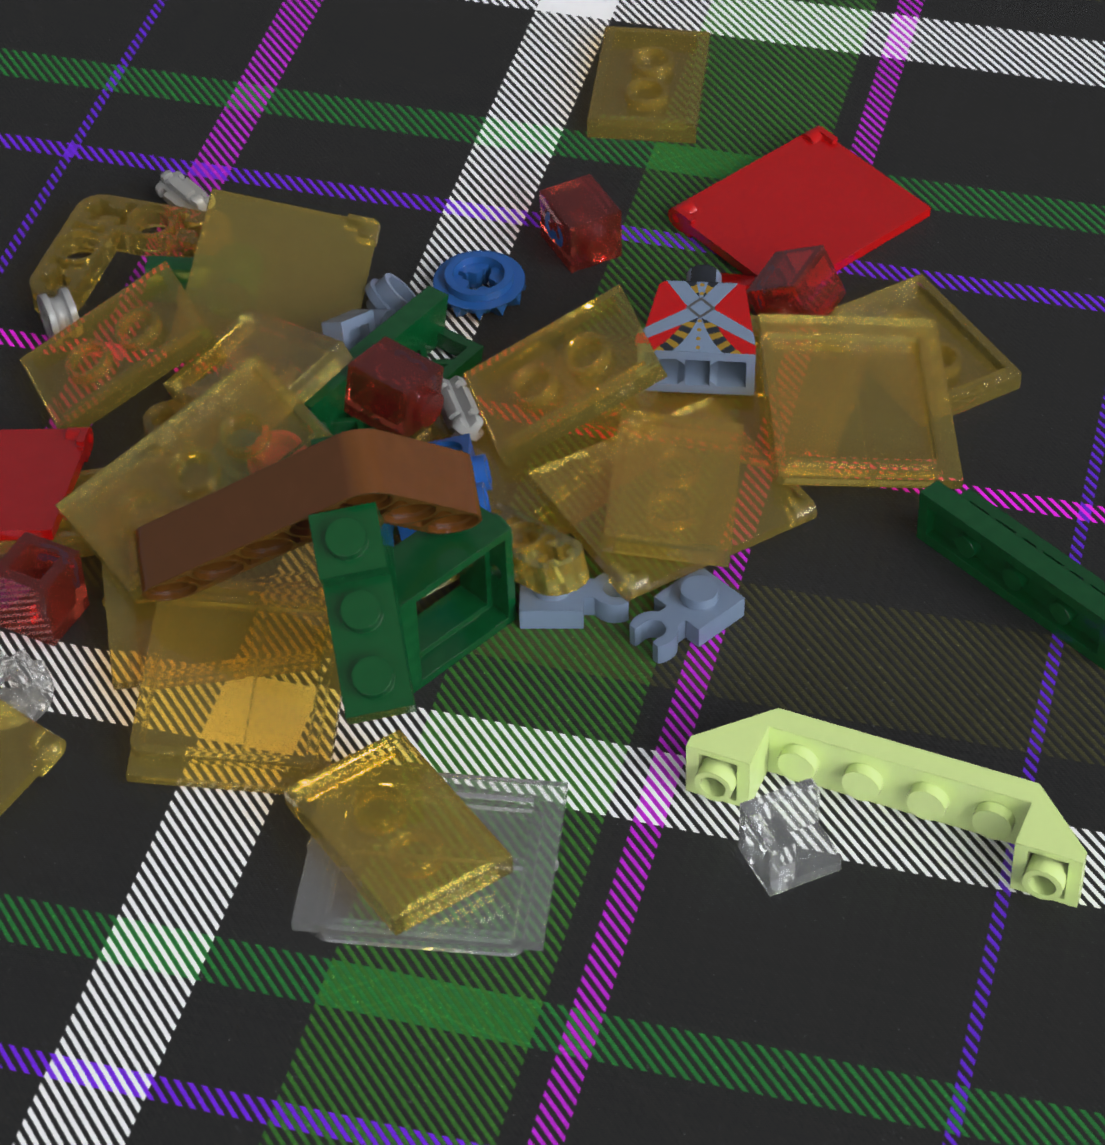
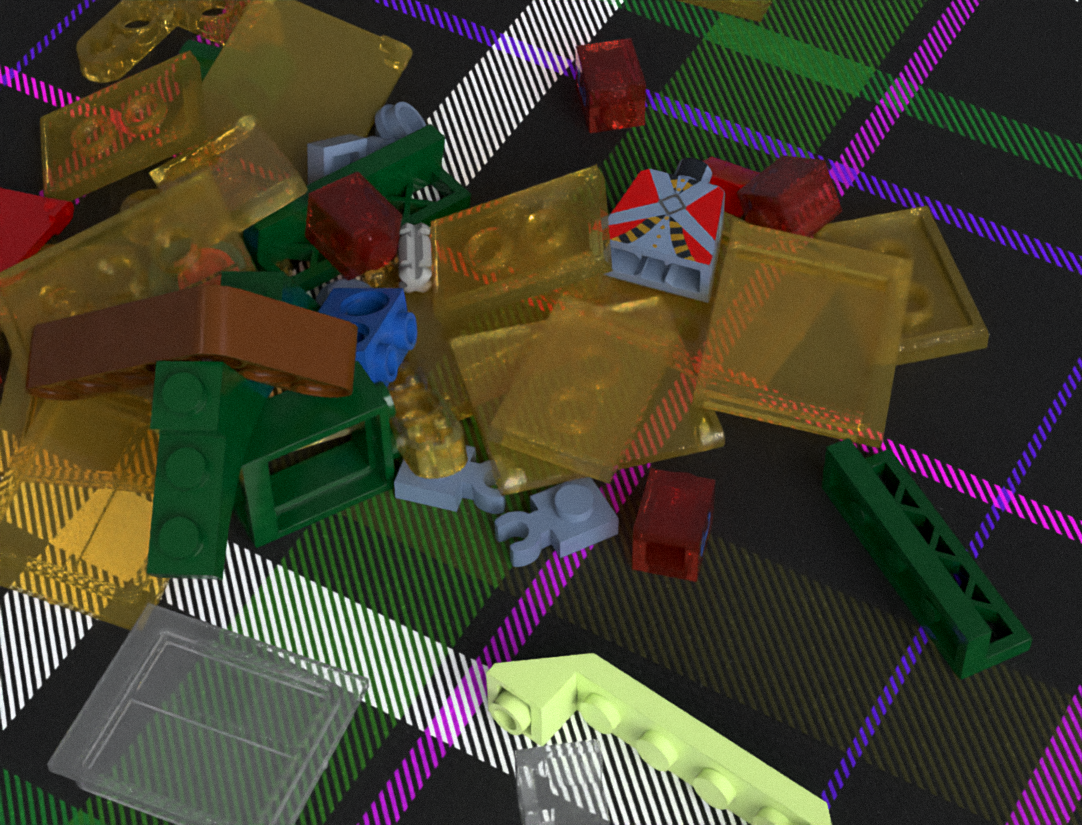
camera: 15 degrees right, 5 degrees up
(57, 311) = (89, 76): light grey bush -> none
(398, 832) = (181, 695): clear yellow tile -> none
(472, 271) = (492, 112): blue gear -> none
(799, 199) = (837, 104): red piece -> none
(800, 591) = (673, 524): none -> clear red brick

